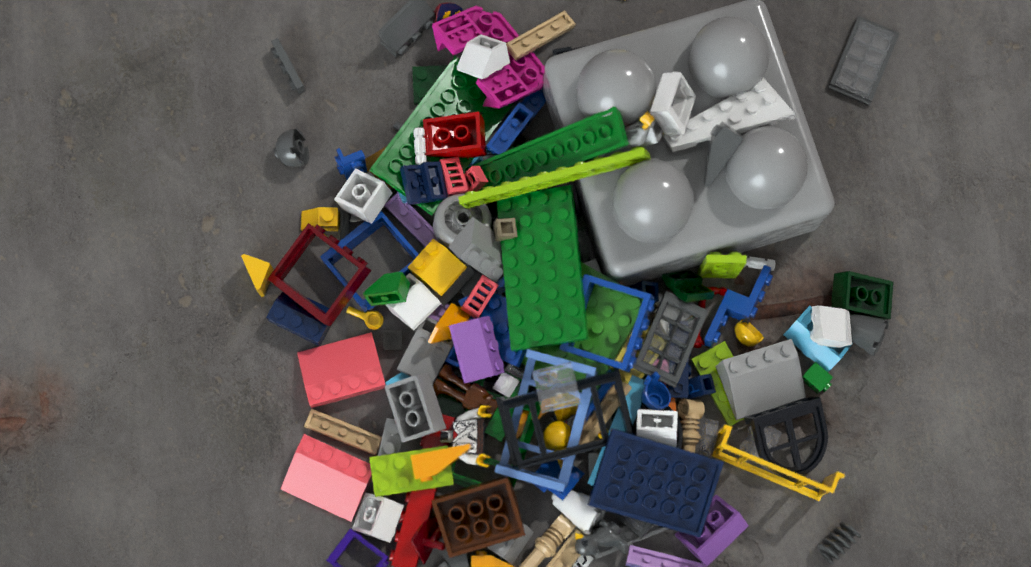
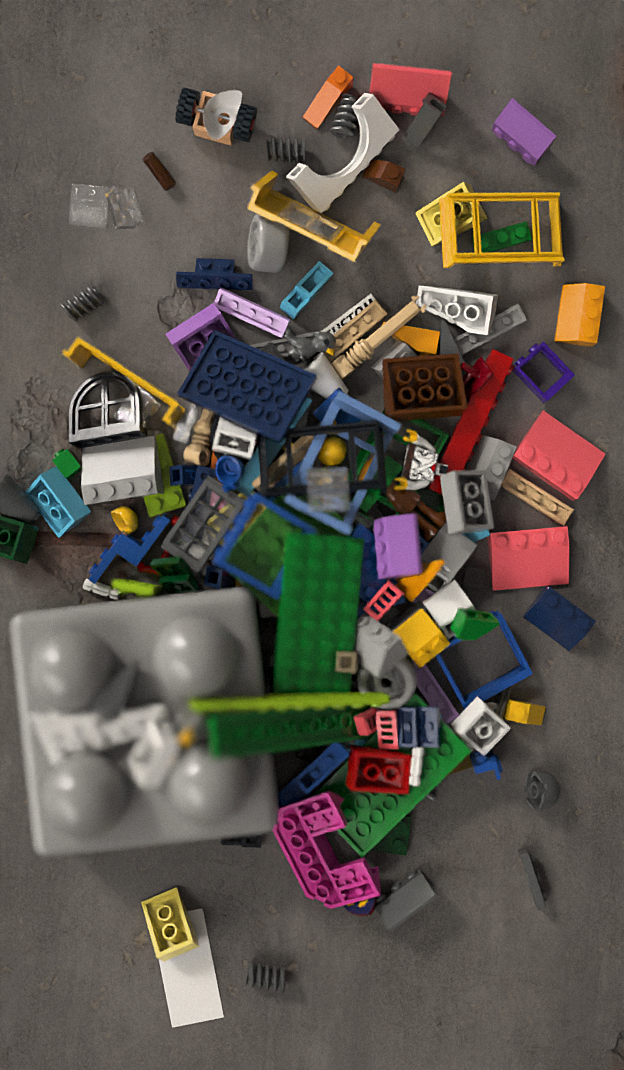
camera: 165 degrees left, 10 degrees up
(259, 272) = (596, 666): yellow slope -> none
(292, 256) = (577, 656): dark red window -> none
(372, 319) = (489, 602): yellow plate -> none
(377, 517) = (518, 407): white slope -> none
(395, 474) = (480, 442): lime plate -> none
(434, 462) = (461, 443): light orange slope -> none
(483, 57) = (334, 849): white slope -> none
(505, 384) = (373, 508): white plate -> none
(540, 35) = (270, 864): tan tile -> none
(831, 326) = (42, 507): white slope -> none

